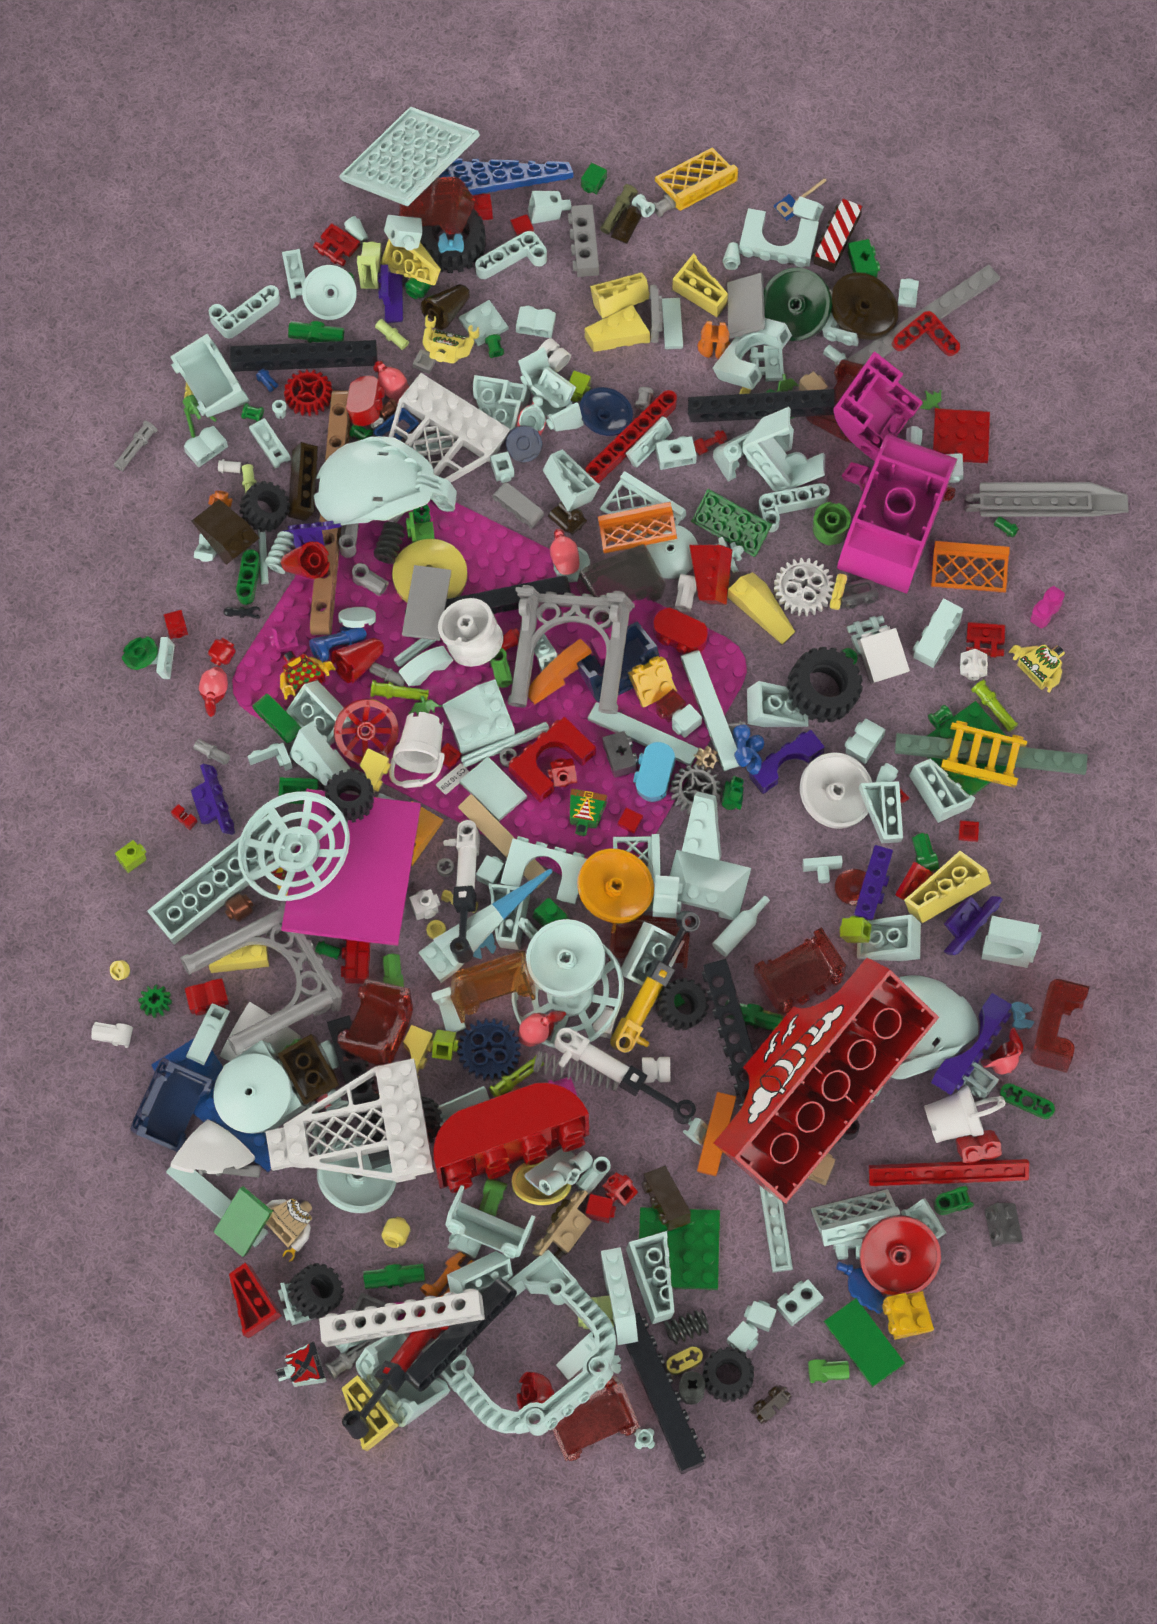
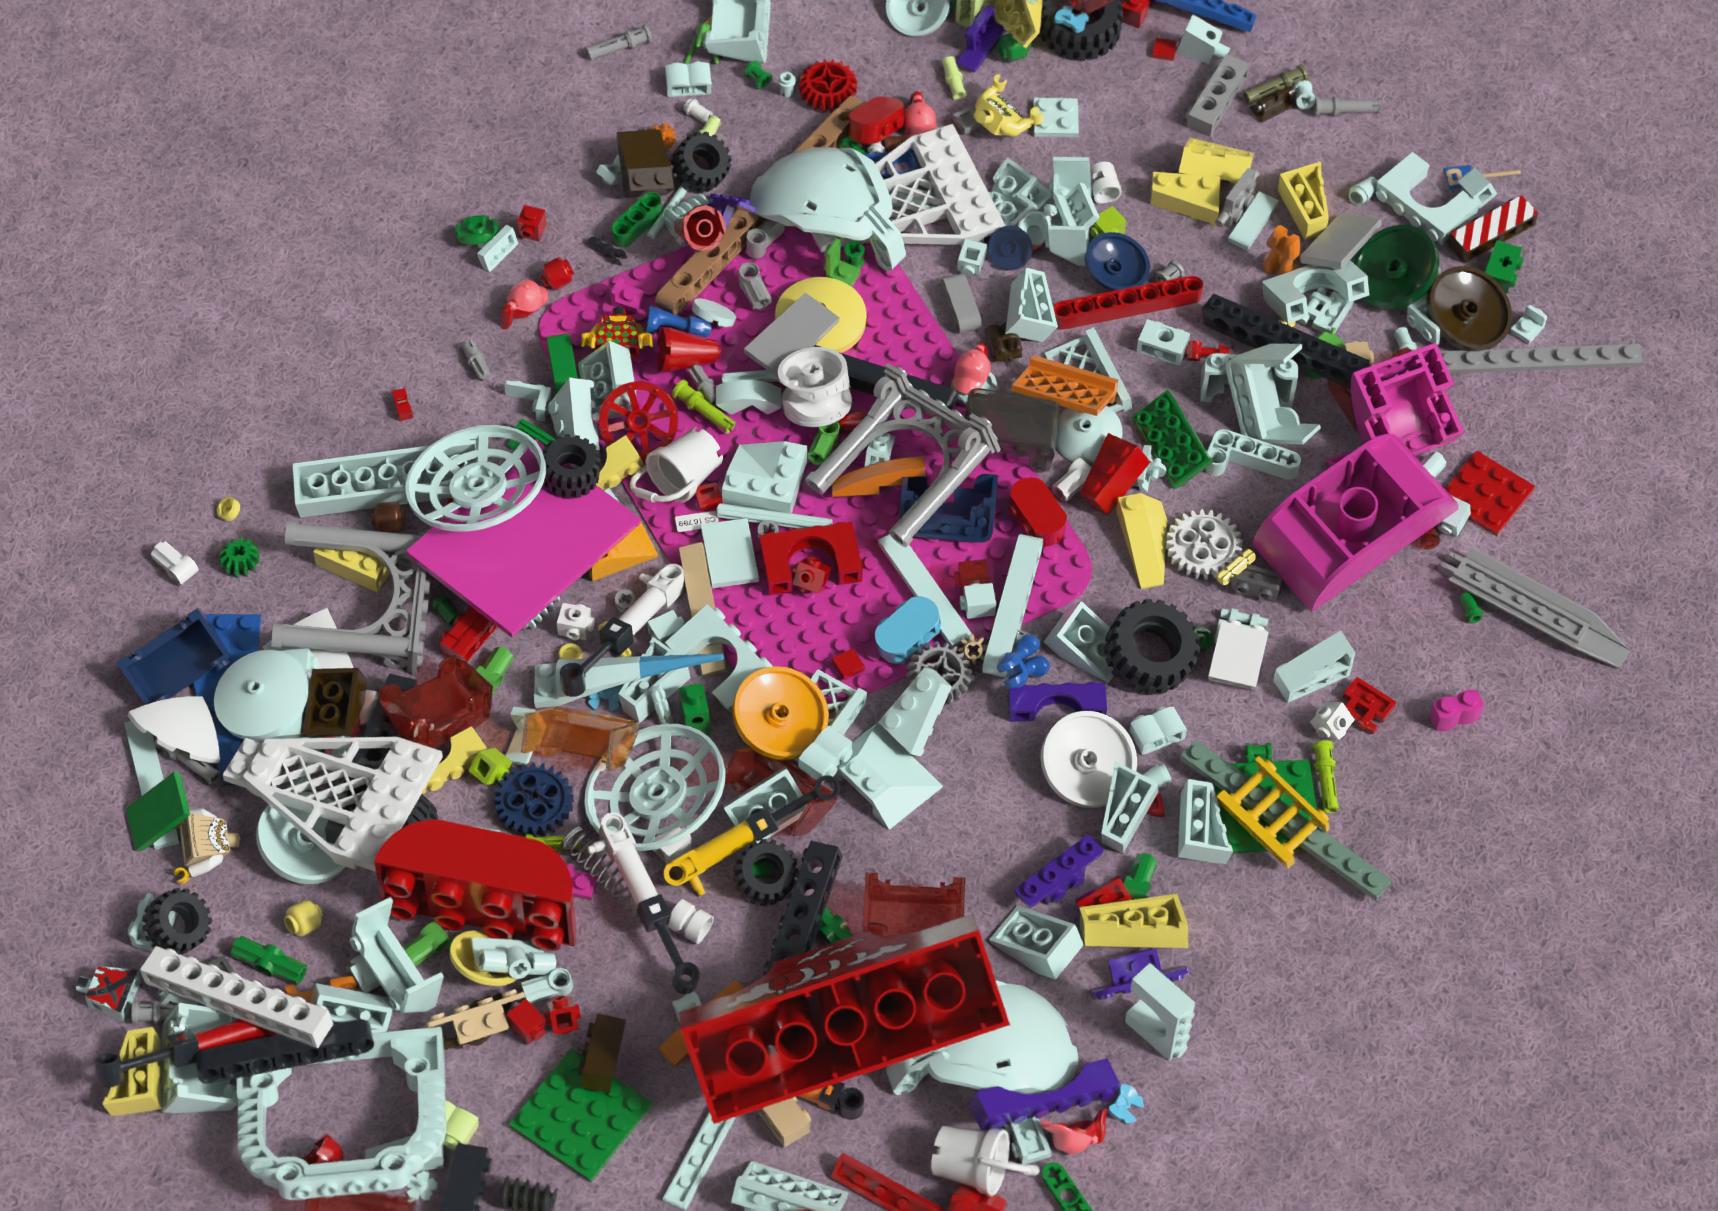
camera: 30 degrees right, 10 degrees down
(131, 856) = (321, 409): lime brick -> none
(203, 995) = (292, 582): red brick -> none
(208, 1034) = (261, 615): light aqua slope -> none
(211, 802) = (441, 403): dark purple bracket -> none
(252, 1300) = (110, 896): red wedge -> none
(266, 379) = (795, 49): blue pin -> none
(269, 442) = (754, 110): light aqua plate -> none
(303, 355) = (848, 48): black brick -> none
(303, 481) = (758, 160): dark brown brick -> none
(315, 332) = (878, 36): green piece -> none
(389, 542) = (799, 261): pearl dark grey piece -> none
(424, 706) = (721, 435): bright green piece -> none
(445, 305) = (1027, 78): dark brown cone -> none
(488, 266) = (1130, 66): light aqua beam -> none
(494, 345) = (1051, 140): green bush -> none
(535, 322) = (1109, 143): light aqua brick -> none
(538, 1027) = (595, 802): coral hair -> none
(564, 941) = (671, 748): light aqua dish -> none
(586, 810) = (809, 626): torso -> none
(593, 178) = (1270, 43): green brick -> none
(620, 764) = (884, 581): flat silver brick -> none
(620, 1296) = (484, 1099): light aqua arch -> none
(648, 441) = (1134, 318): light aqua tile -> none
(651, 680) = (969, 538): yellow plate -> none
(653, 1274) = (531, 1113): light aqua wedge -> none
(705, 186) = (1380, 108): yellow fence -> none
(733, 793) = (975, 699): green hips -> none
(738, 928) = (883, 835): light aqua piece -> none
(822, 866) = (1019, 826): light aqua tile -> none
(831, 523) = (1273, 490): bright green brick -> none
(845, 881) = (1031, 857): clear red dish -> none
(855, 930) = (1006, 909): lime brick -> none
(930, 328) = (1525, 368): red beam -> none
(931, 400) = (1479, 441): bright green piece -> none
(968, 831) = (1205, 885): red tile -> none
(970, 551) = (1414, 610): orange fence -> none
(1040, 664) = (1406, 761): light yellow torso -> none
(1048, 1048) = (1169, 1108): clear red windscreen -> none

